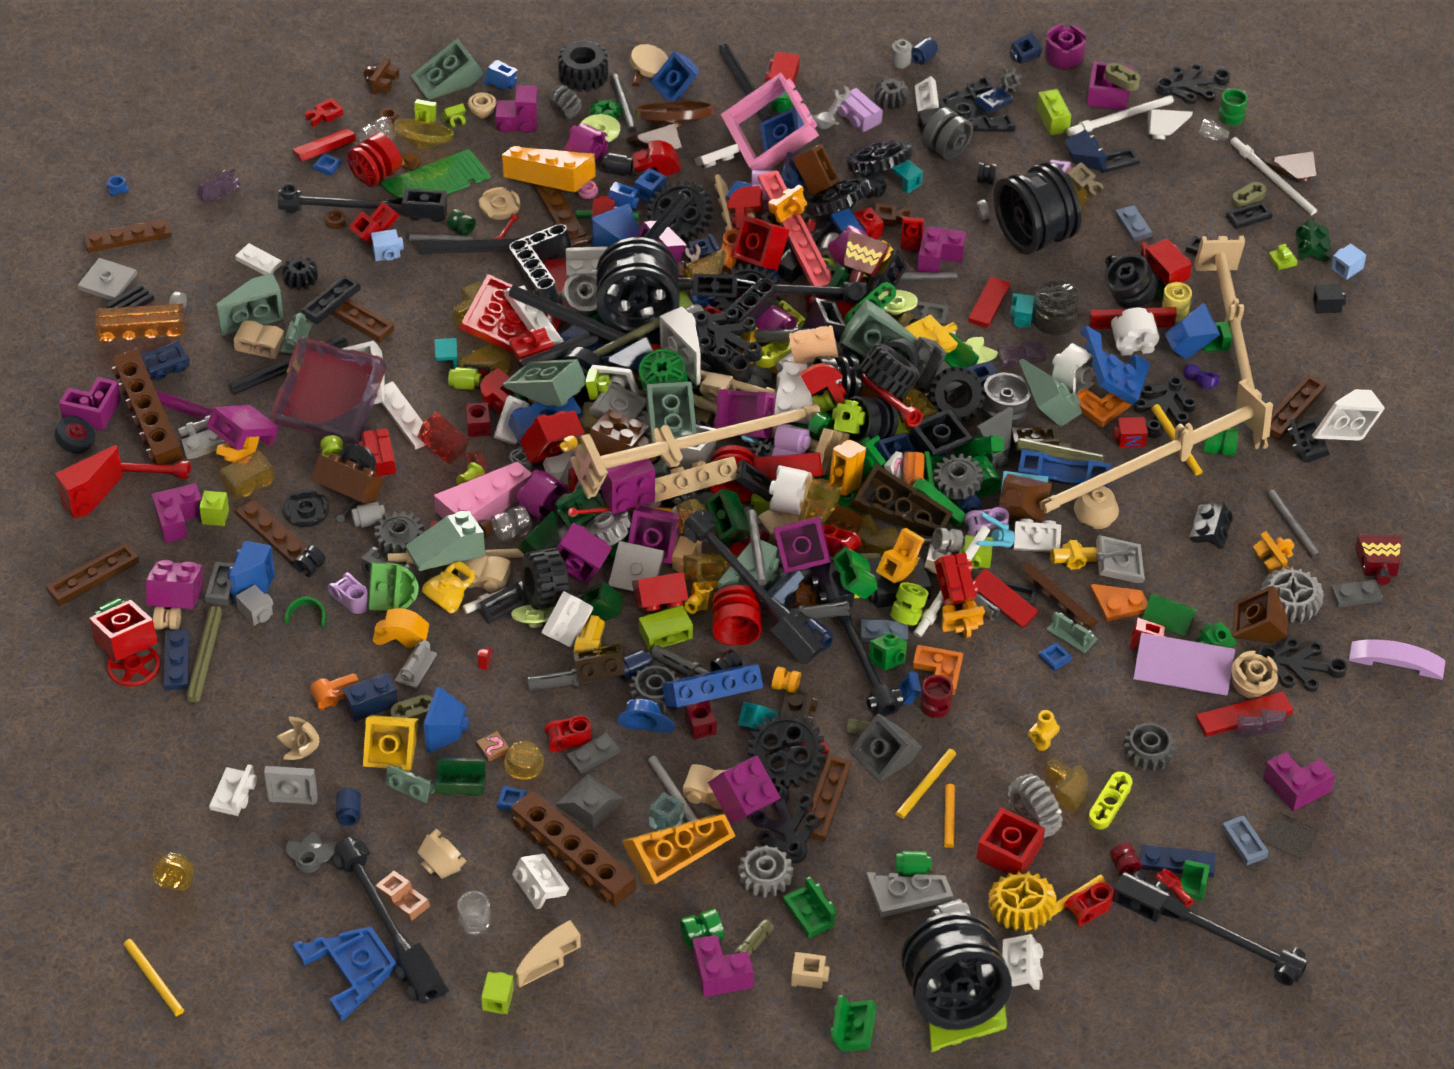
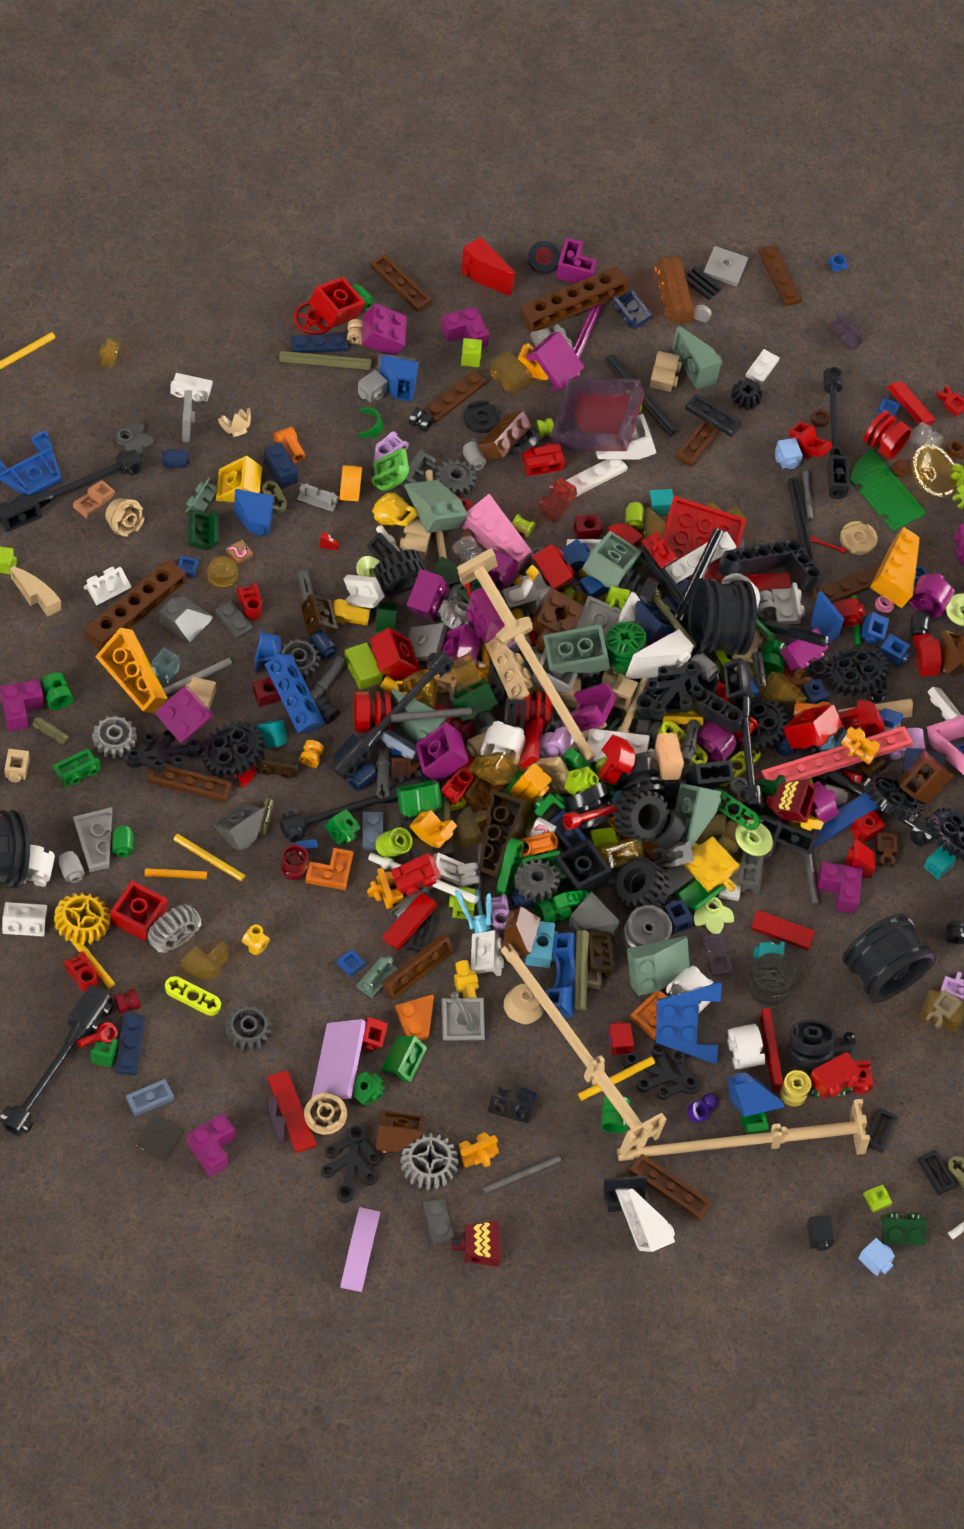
camera: 80 degrees right, 10 degrees up
(179, 469) = (515, 329): red piece -> none
(297, 328) = (672, 398): sand green hinge -> none
(460, 222) = (825, 507): dark green wheel -> none
(474, 913) = (70, 540): clear wheel -> none
(478, 458) = (540, 529): clear red tile -> none
(1133, 223) = (909, 1063): sand blue plate -> none

